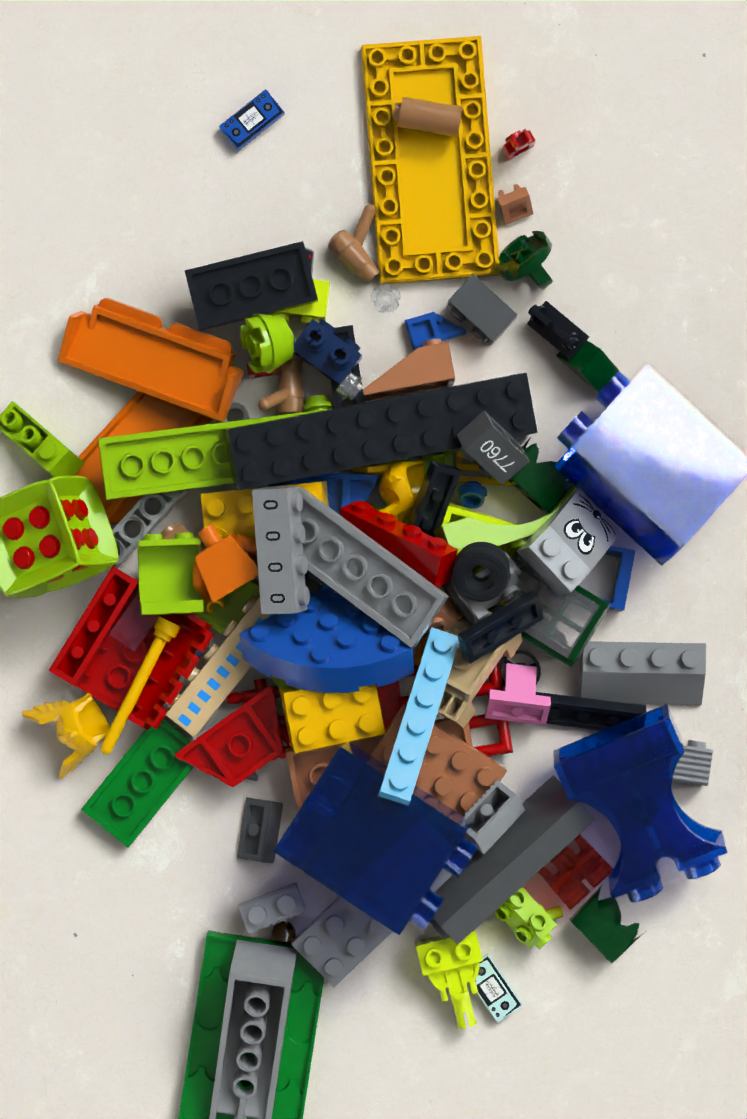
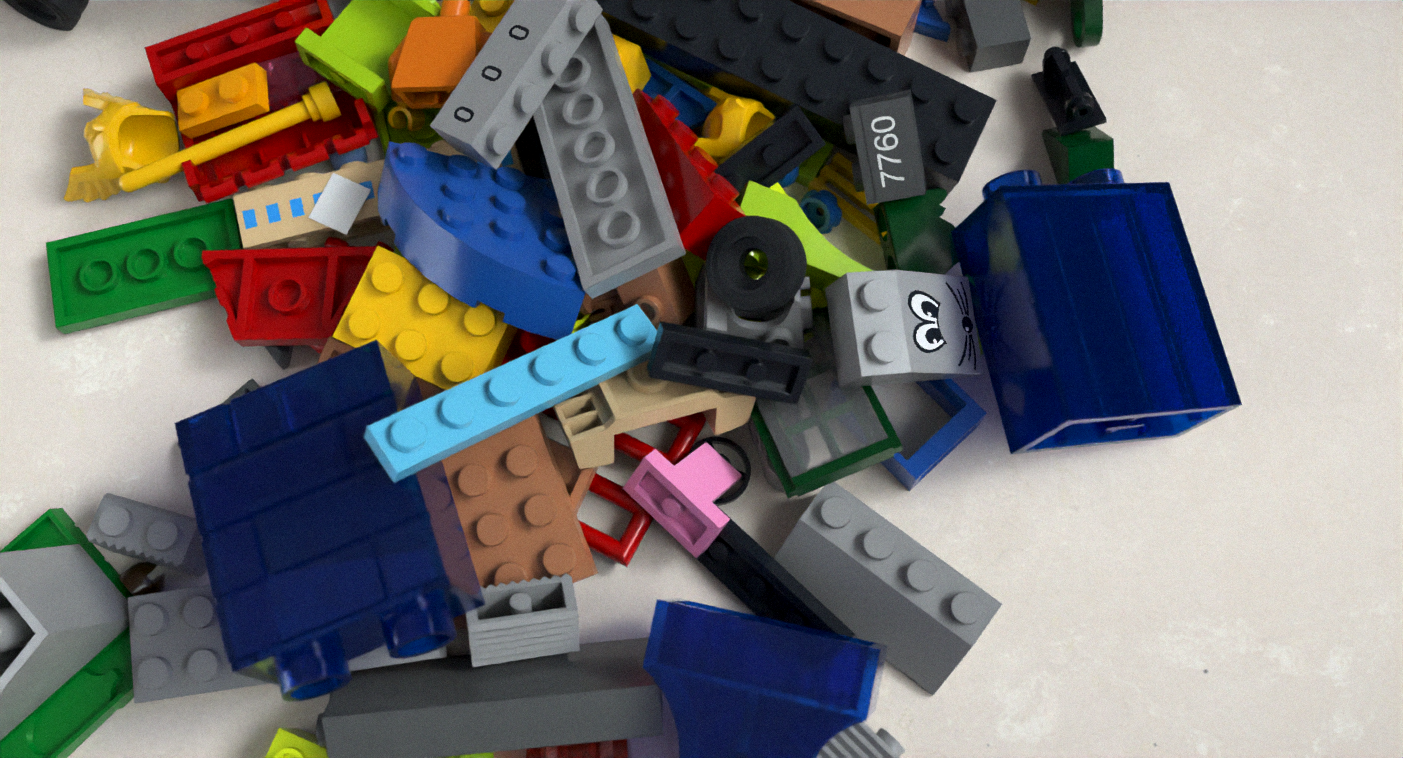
camera: 40 degrees right, 15 degrees down
(112, 667) = (223, 100): none -> light orange plate
(225, 677) = (339, 203): none -> white sticker

